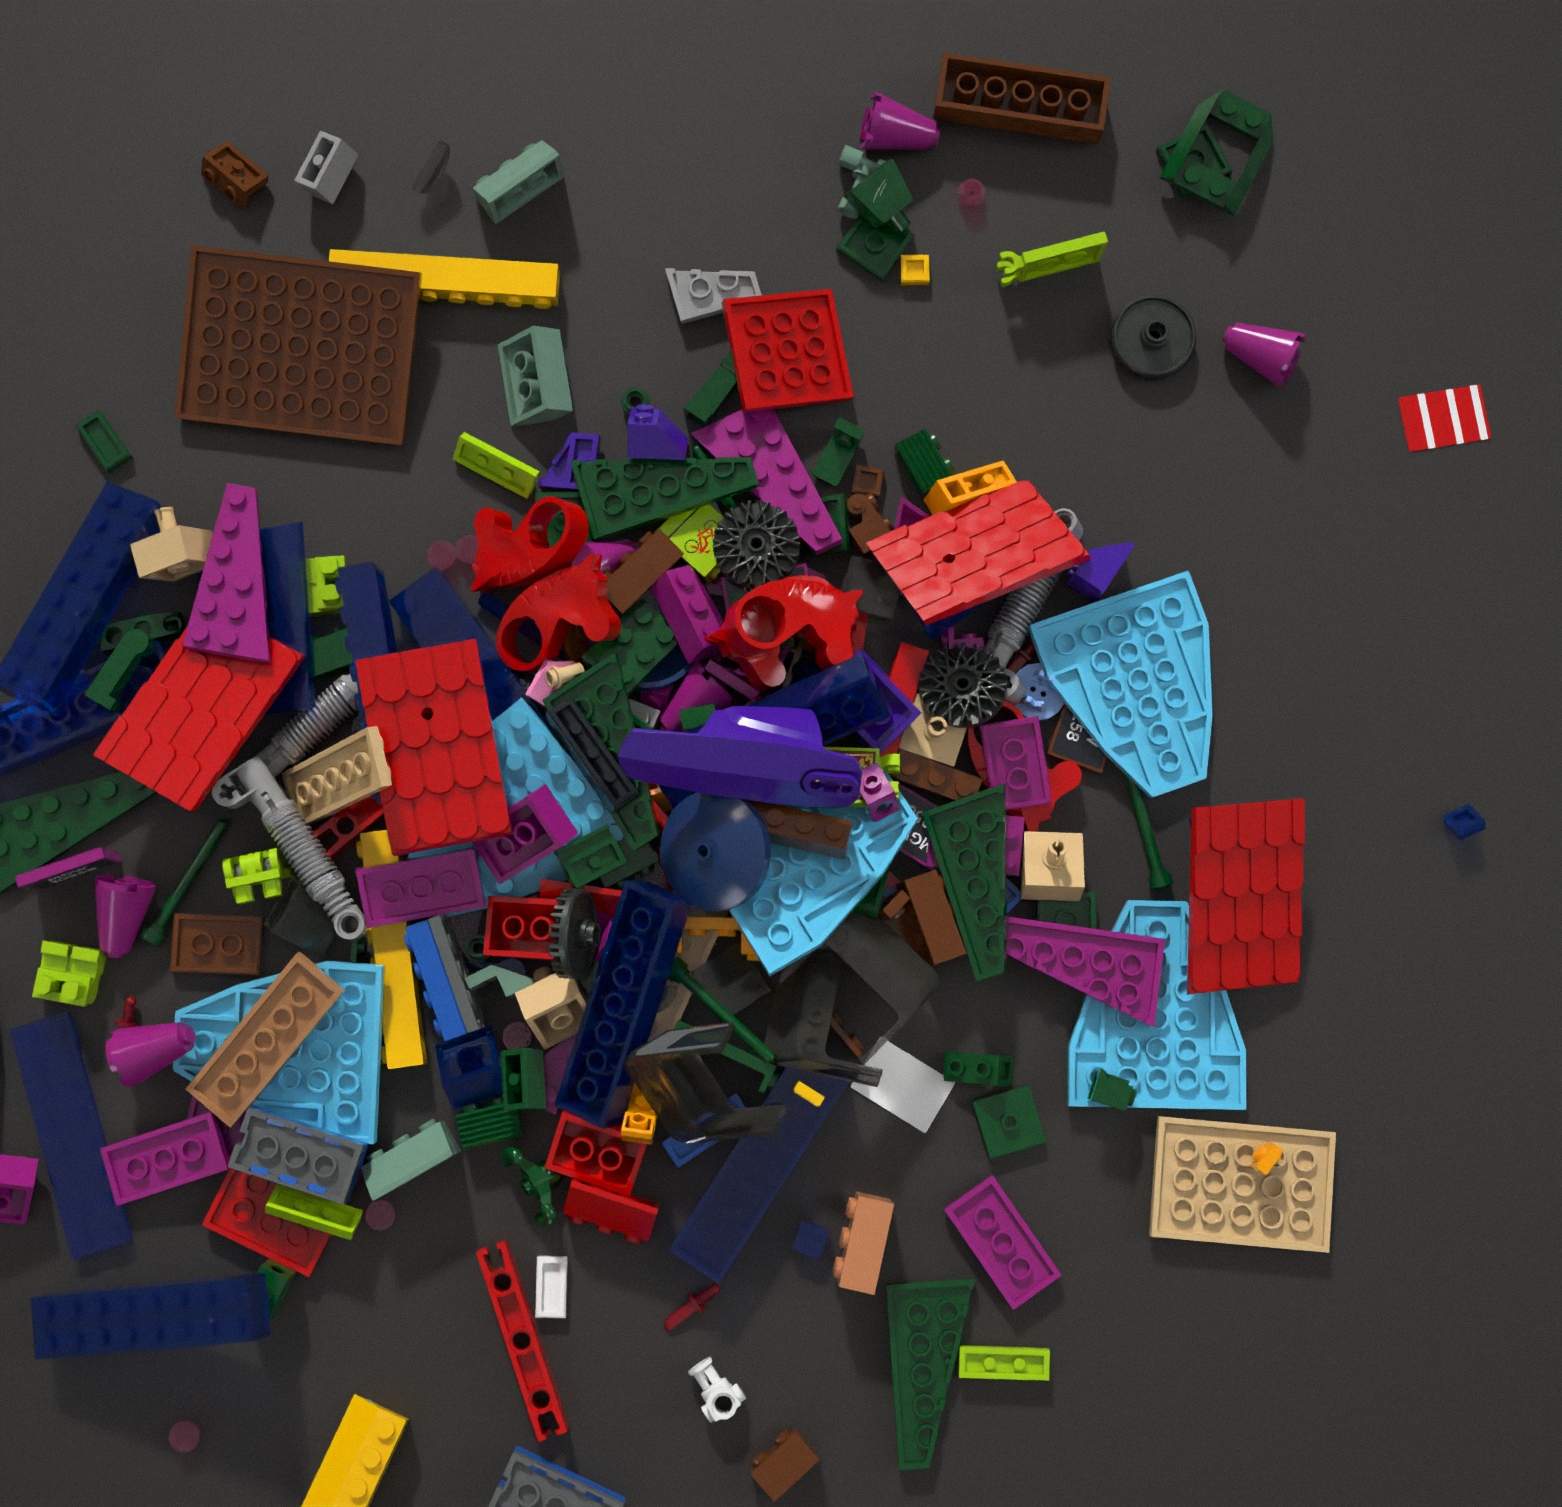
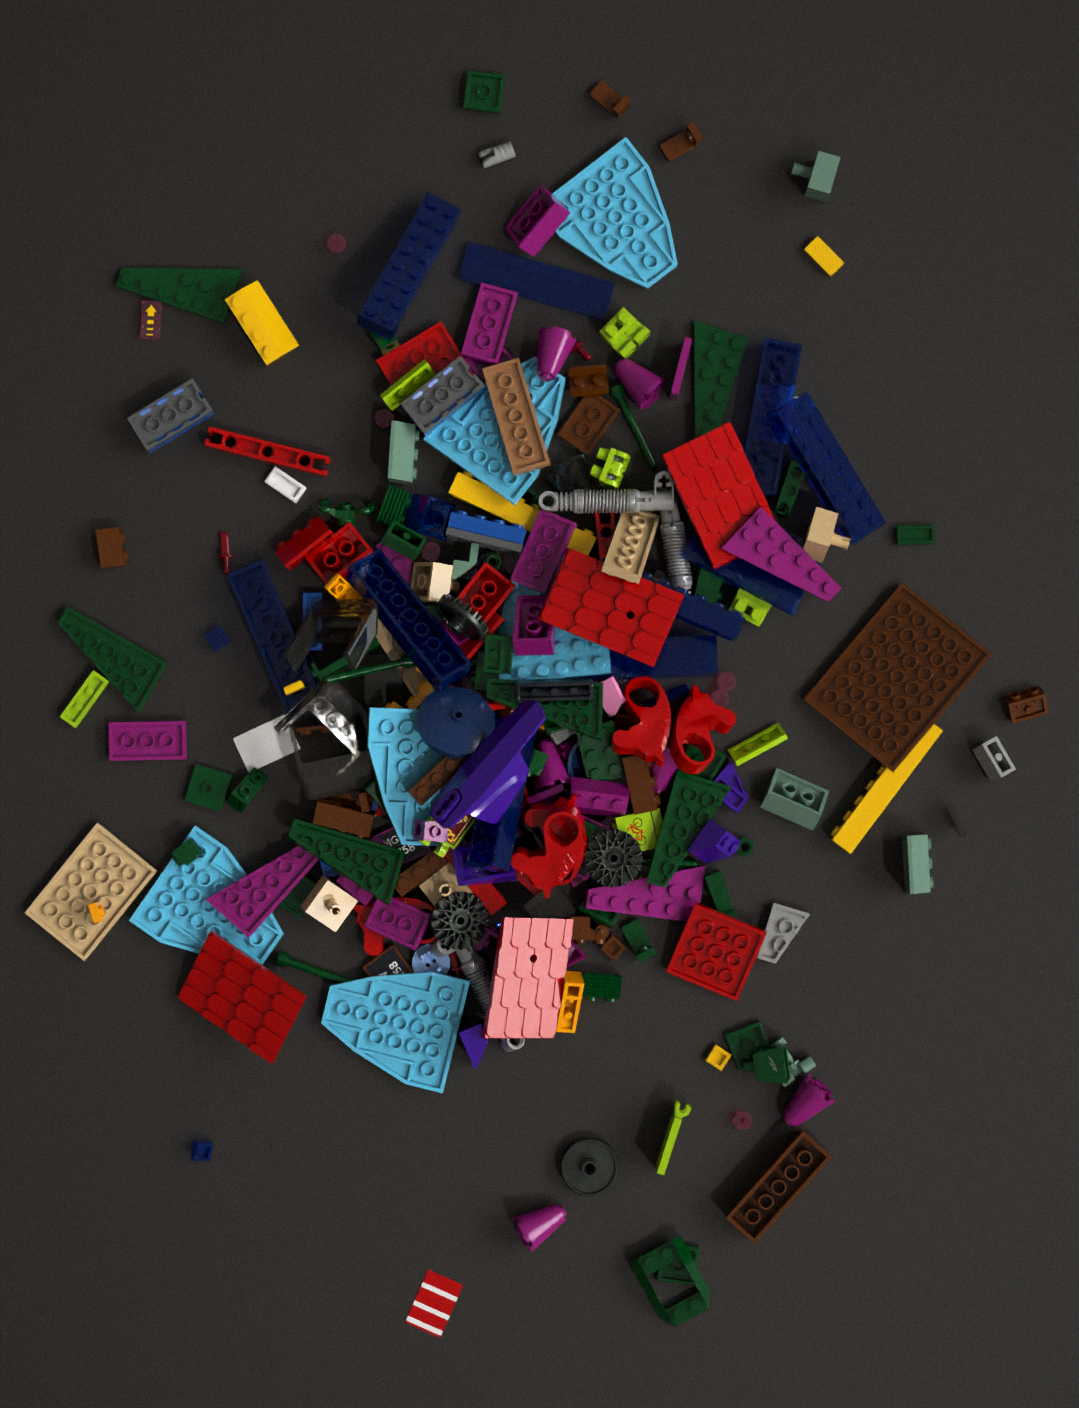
camera: 130 degrees right, 5 degrees up
(119, 668) = (771, 463): dark green leg -> none
(160, 979) = (588, 380): none -> reddish brown bracket
(560, 676) = (609, 702): tan pin -> none
(715, 1389) = (175, 536): white connector -> none
(863, 1242) = (197, 665): nougat brick -> none

